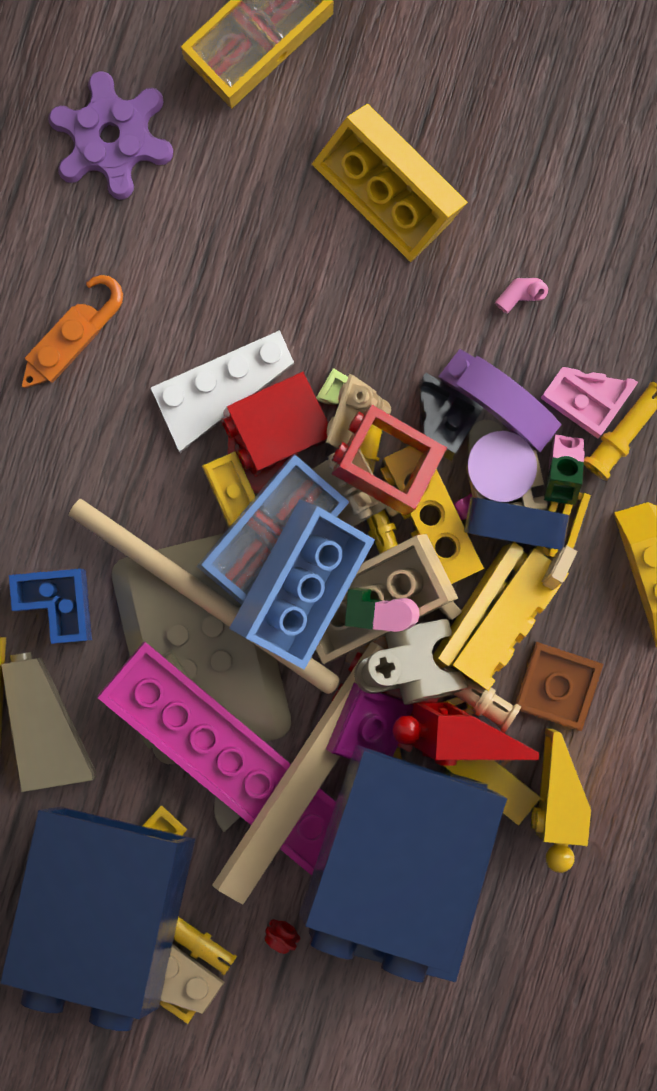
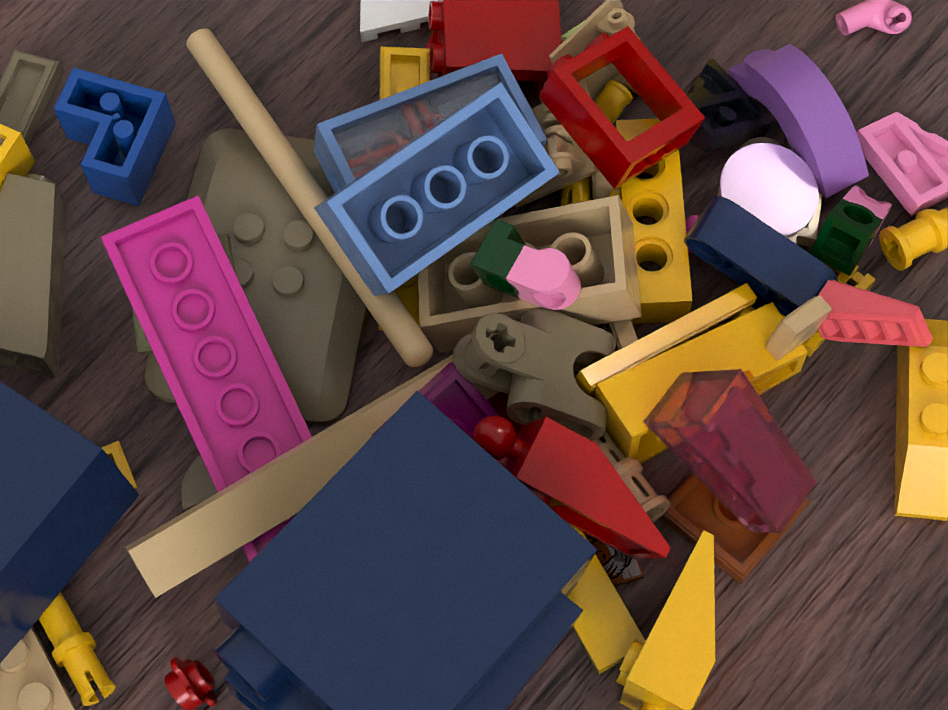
camera: 25 degrees right, 20 degrees down
(549, 667) = (733, 446): none -> clear pink wedge
(594, 538) = (871, 318): none -> coral slope

